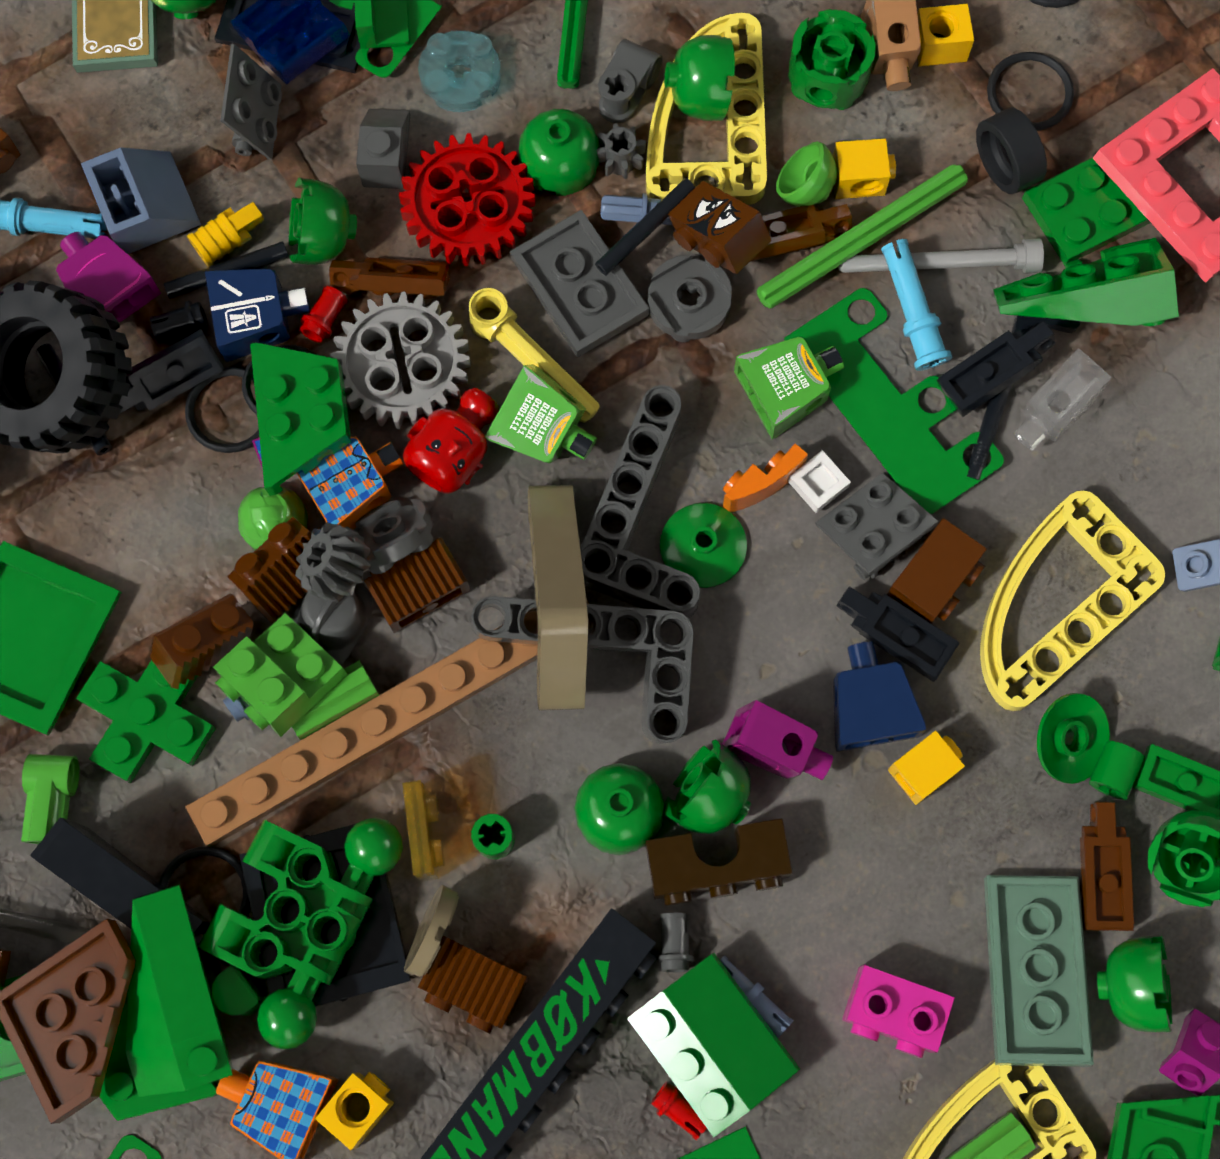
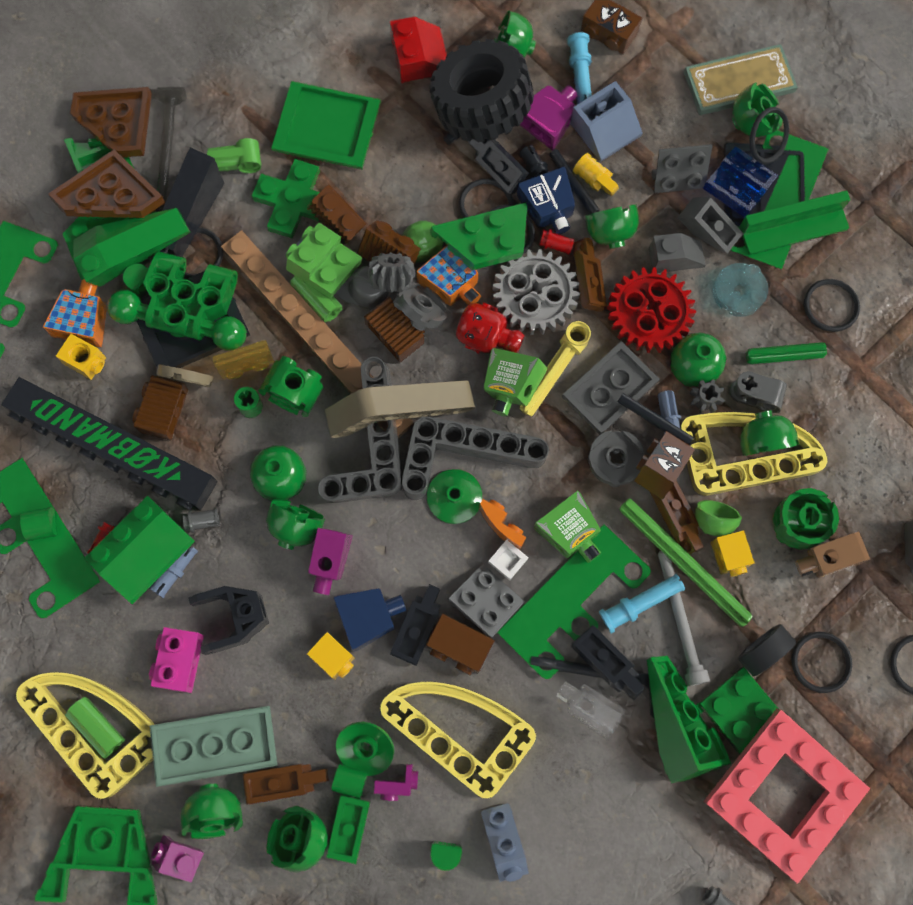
camera: 75 degrees right, 0 degrees up
(348, 86) = (710, 224): none -> dark grey slope
(487, 757) = (291, 400): none -> green brick
(759, 859) = (243, 514): dark brown arch -> none
(822, 895) = (245, 625): none -> black piece
(951, 22) = (857, 593): yellow brick -> none
(1136, 709) = (392, 789): none -> magenta bracket

